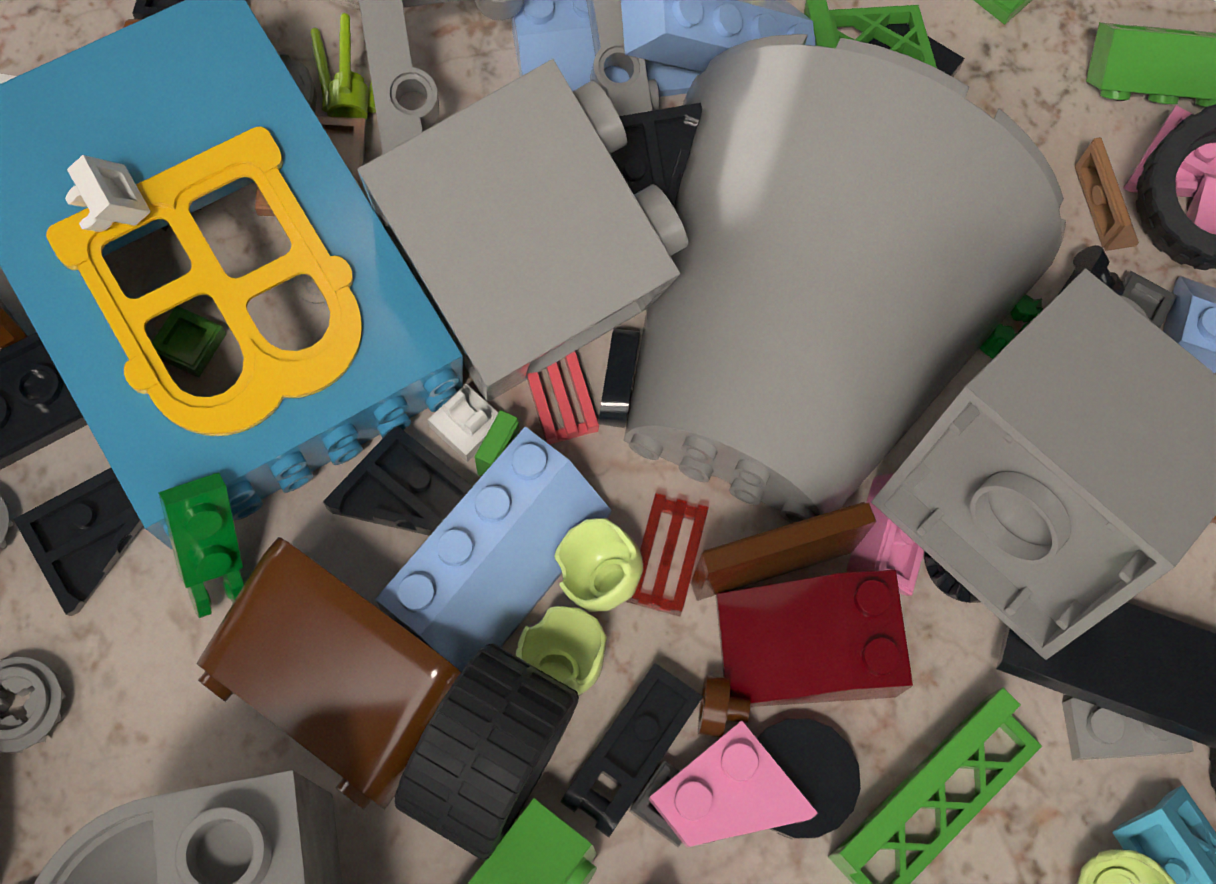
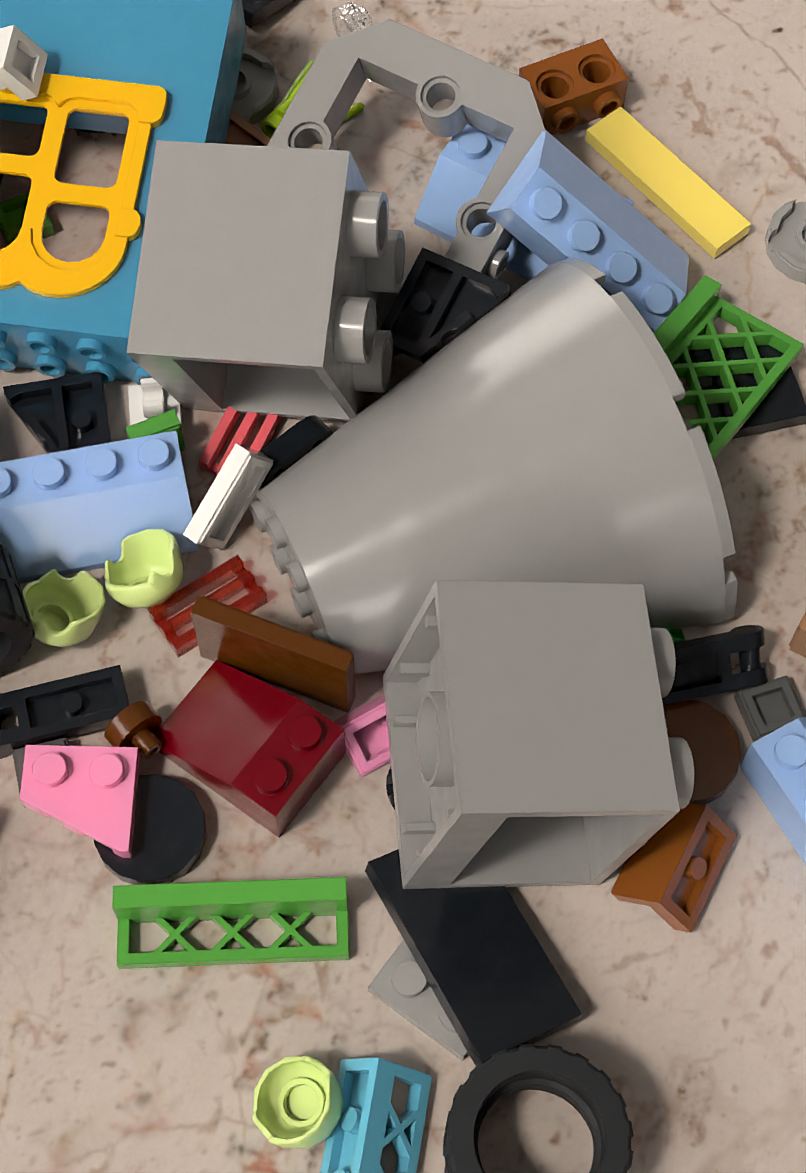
camera: 45 degrees right, 5 degrees down
(617, 450) = (228, 497): none -> white tile

